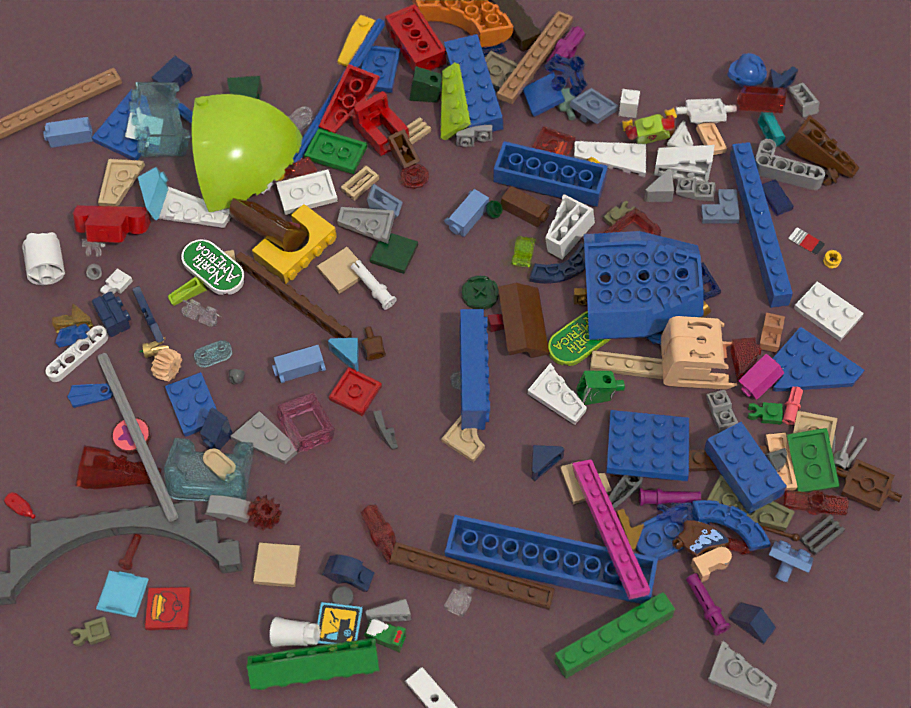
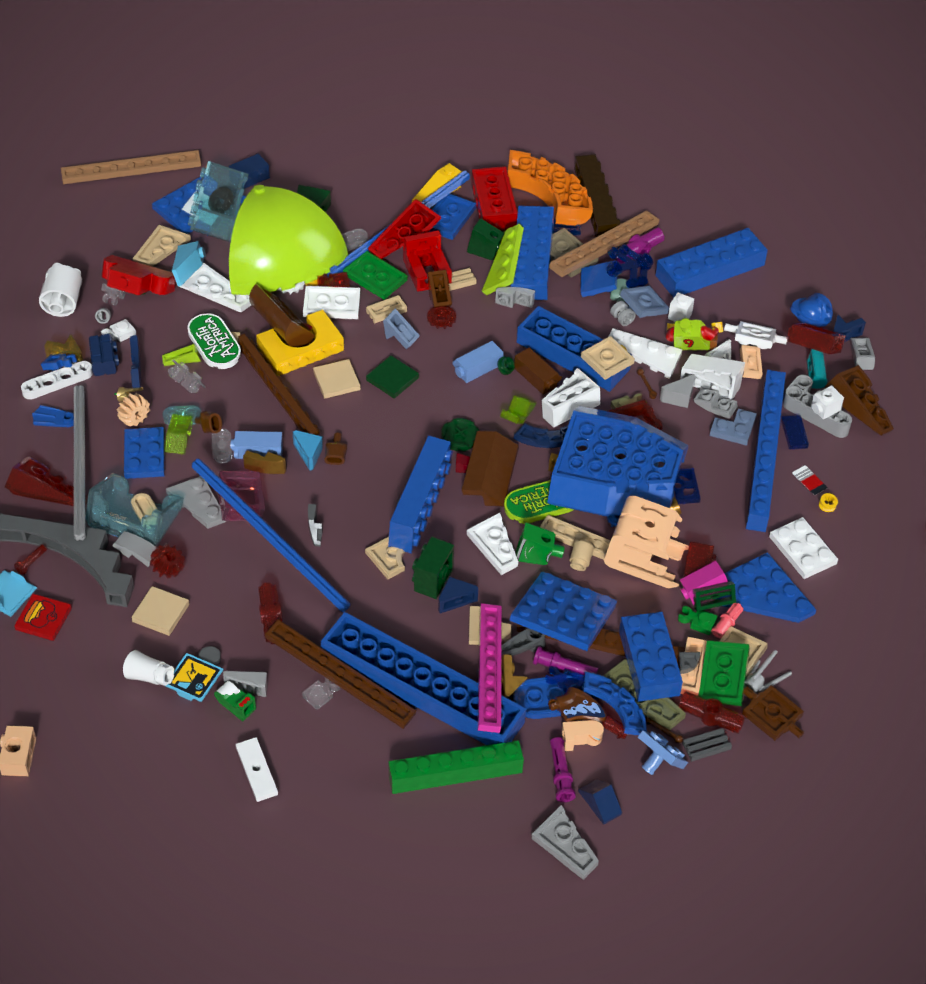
camera: 15 degrees right, 10 degrees down
(68, 132) = (132, 193): medium blue brick -> none
(123, 440) = (65, 462): tile -> none
(154, 120) = (214, 201): none -> clear smoke gear
(215, 430) = (153, 477): dark blue slope -> none
(218, 375) = (177, 434): none -> clear neon green slope
(236, 376) = (194, 439): dark grey hinge -> none
(245, 355) = (209, 422): none -> reddish brown piece
(266, 375) = (222, 446): none -> clear plate
(312, 664) = (155, 702): green brick -> none
(319, 379) = (269, 464): none -> pearl gold slope
(348, 570) = (224, 631): dark blue brick -> none
(351, 456) = (271, 535): none -> blue axle
(355, 391) = (301, 485): red tile -> none
(369, 222) = (378, 343): light grey wing -> none
(378, 290) = (361, 404): white pin -> none
(514, 440) = (433, 567): none -> dark green brick
(554, 141) = (593, 323): clear red tile -> none
(578, 123) = (624, 315): none -> light grey wheel
(588, 176) = (607, 357): none -> tan tile
(636, 197) = (652, 394): none -> reddish brown hinge
(637, 48) = (711, 262): none -> blue brick
(640, 382) = (581, 555): none -> tan brick
(721, 410) = (654, 599): light grey slope -> none
(771, 332) = (736, 550): nougat slope -> none
(775, 384) = (719, 590): none -> dark green tile
(798, 162) = (827, 402): none -> white brick
(832, 176) = (858, 427): reddish brown plate -> none

